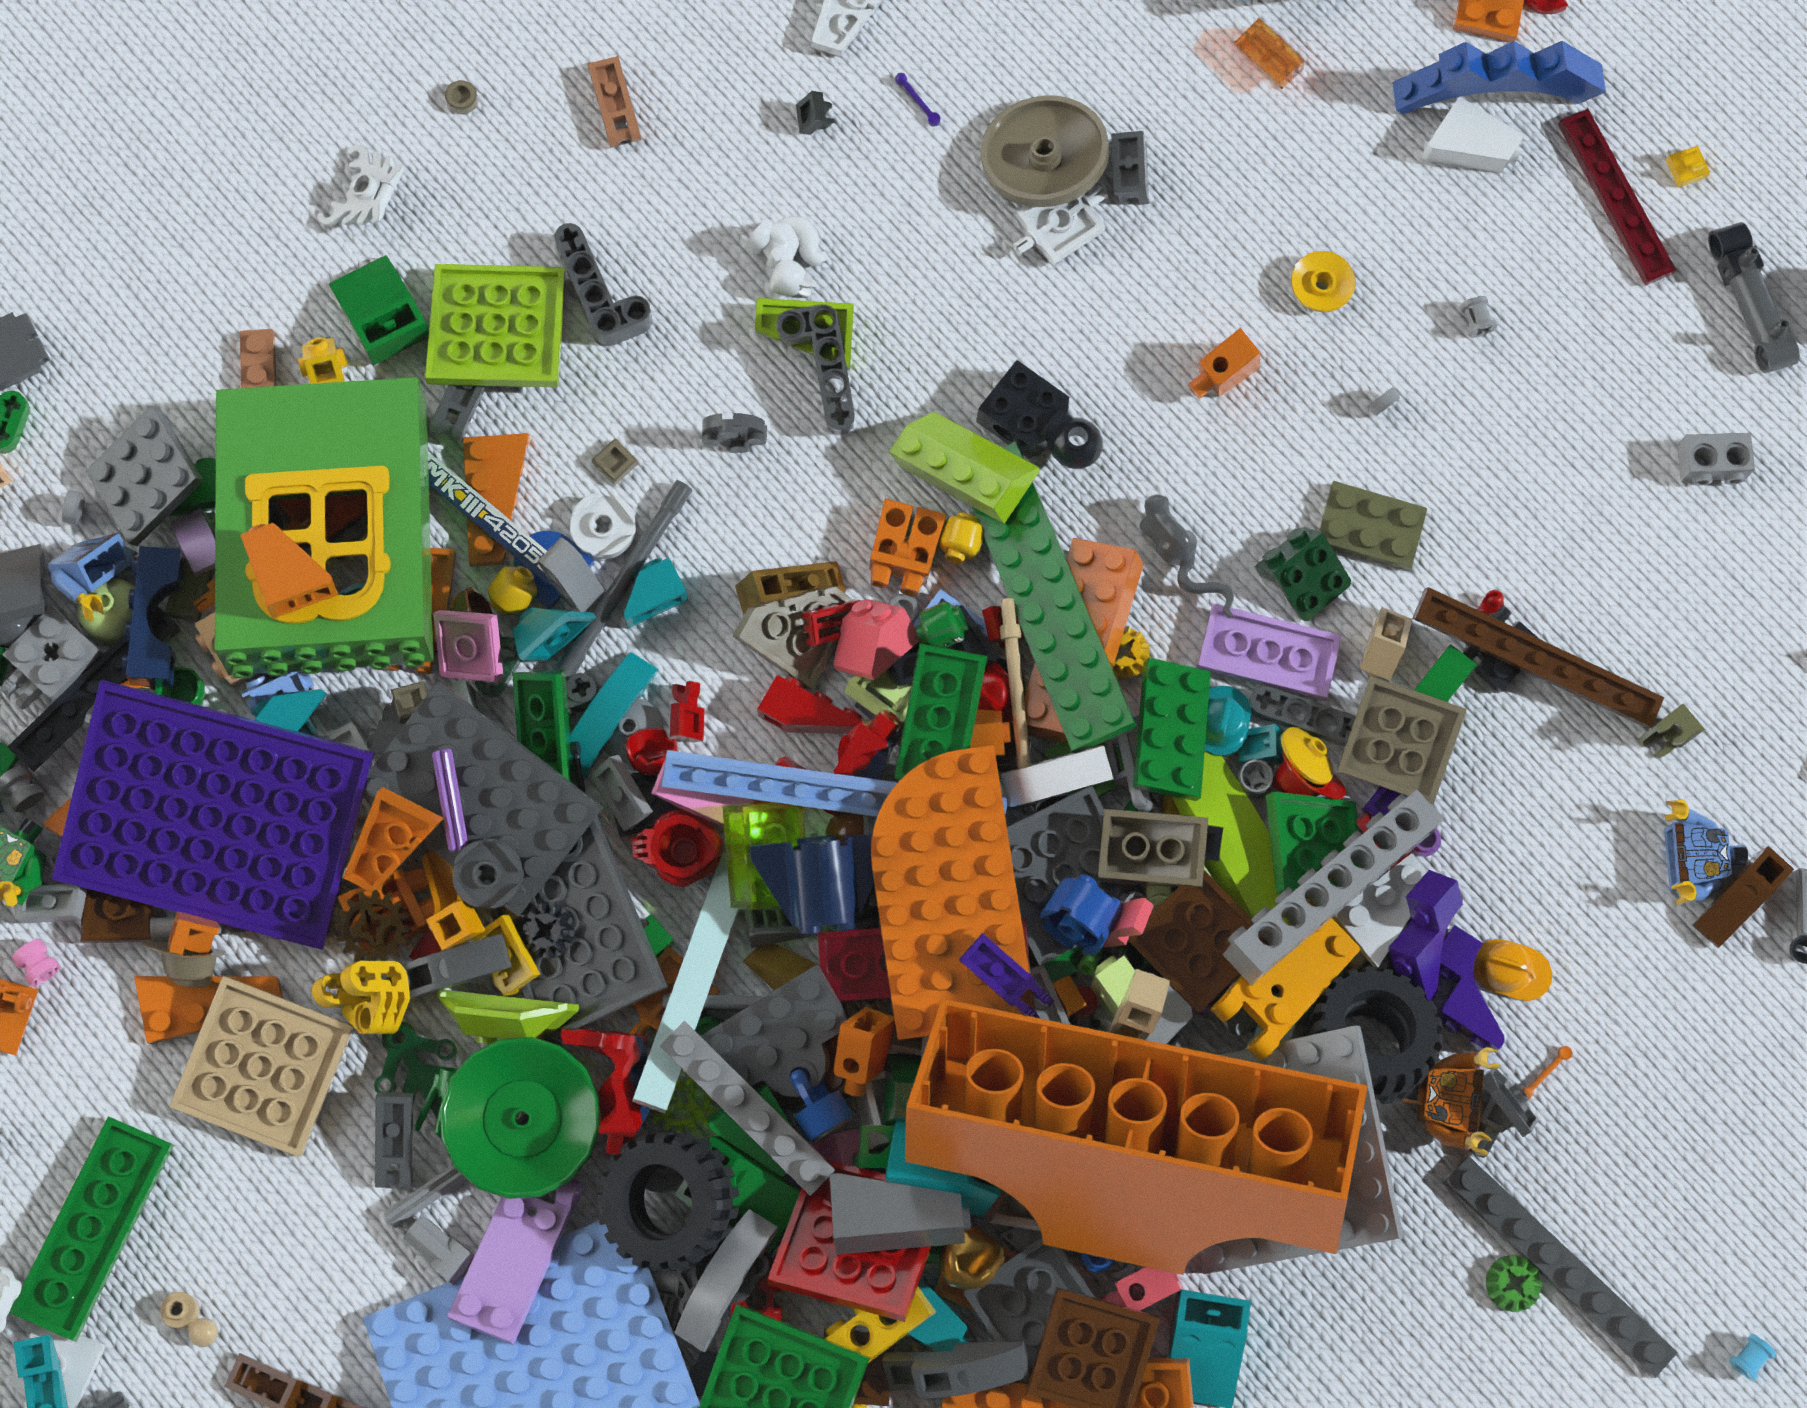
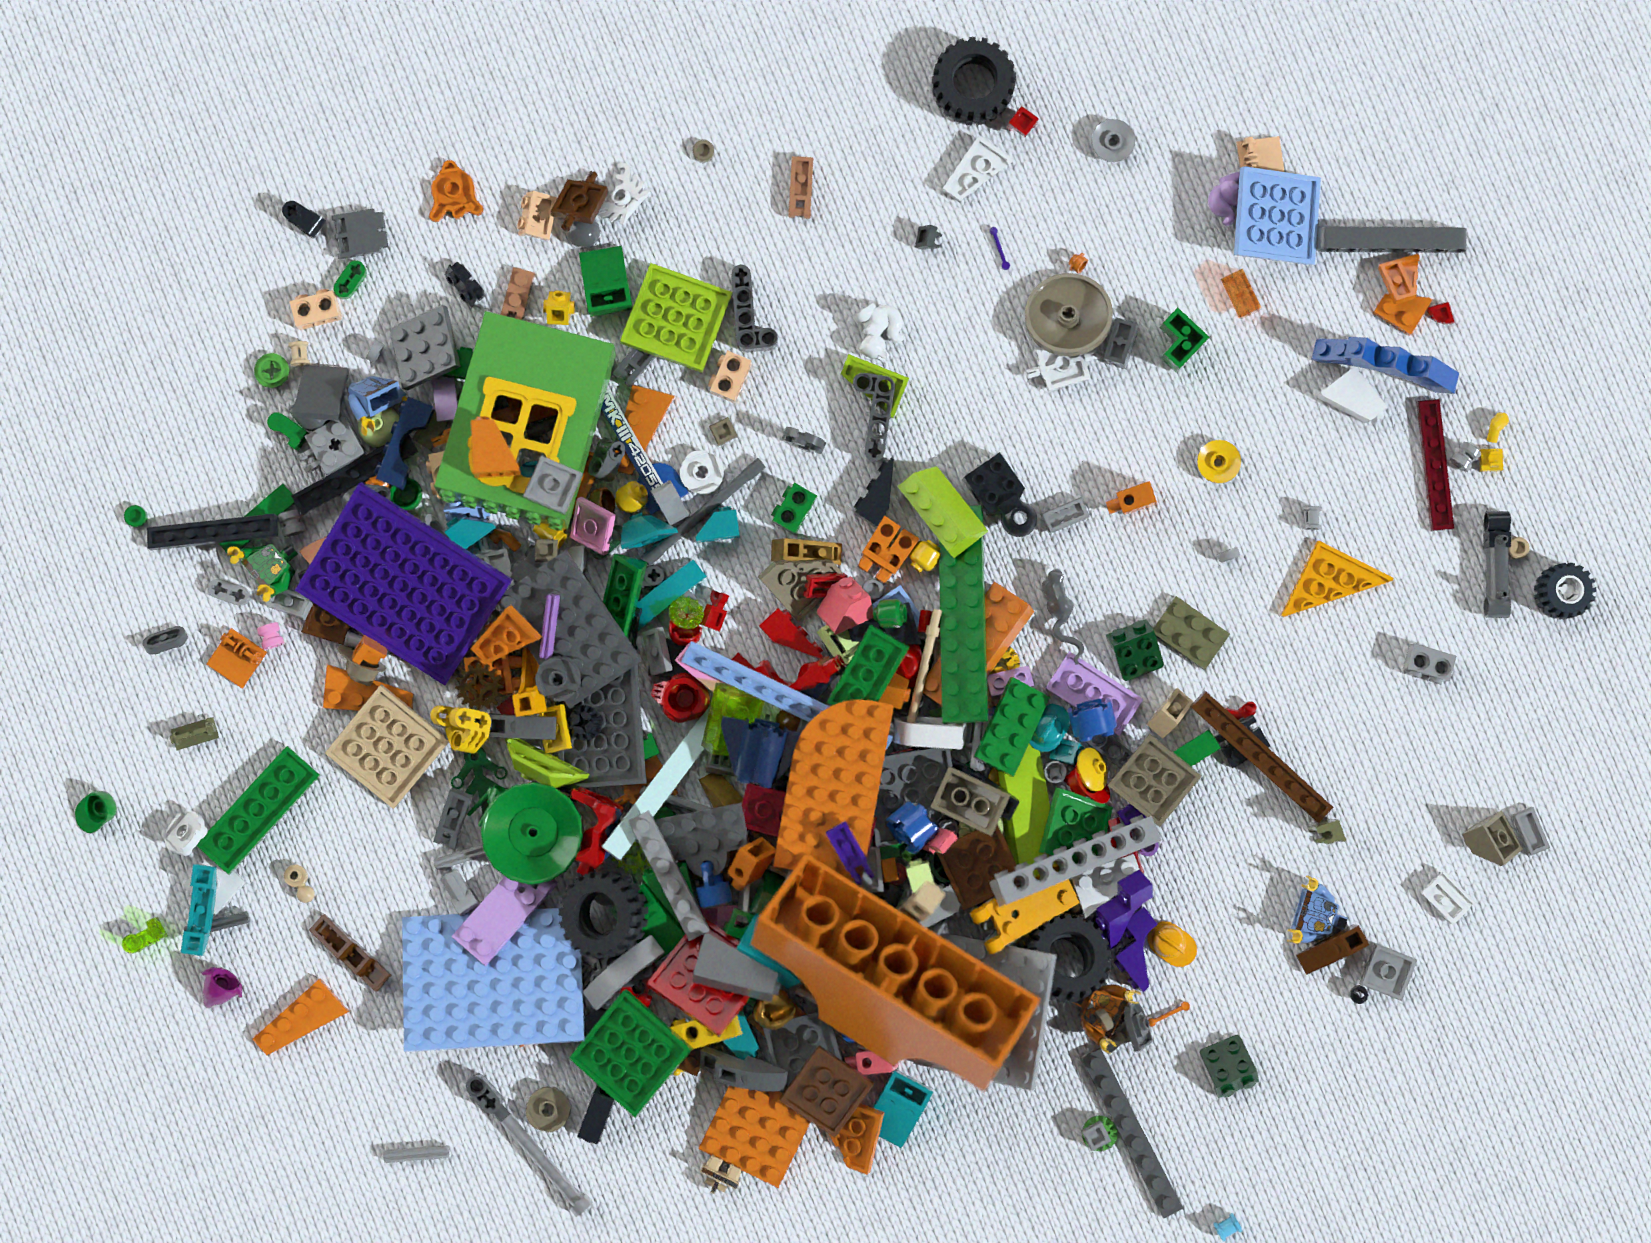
camera: 20 degrees right, 10 degrees up
(123, 258) = (454, 193): none -> orange tile
(164, 369) = (457, 276): none -> black hinge
(252, 250) = (536, 215): none -> light nougat bracket
(307, 210) = (579, 201): none -> reddish brown plate
(324, 252) = (583, 234): none -> dark grey hair
(345, 706) = (506, 537): none -> orange arm
(390, 592) = (552, 485): none -> light grey plate
(405, 676) = (545, 532): none -> yellow cone
(458, 552) = (605, 461): none -> dark grey piece
(605, 381) = (735, 378): none -> light nougat brick
(637, 734) = (678, 616): none -> clear neon green gear
(759, 533) = (799, 511): none -> green brick
(867, 482) = (877, 500): none -> black slope
(1032, 83) = (1078, 263): none -> orange plate
(1130, 674) = (998, 681): none -> lavender hinge
(1138, 421) = (1065, 515): none -> light grey plate
(1215, 130) = (1186, 339): none -> green brick
(1282, 681) = (1092, 719): none -> blue brick
(1460, 1106) = (1104, 1019): none -> dark tan tile
(1511, 1286) = (1096, 1135): none -> light grey tile
(1534, 388) = (1329, 577): none -> light orange tile
(1653, 170) = (1465, 456): none -> light grey wheel
(1663, 1117) = (1229, 1066): none -> dark green bracket
(1678, 116) = (1496, 425): none -> yellow arm
(1774, 268) = (1519, 548): none -> tan tile

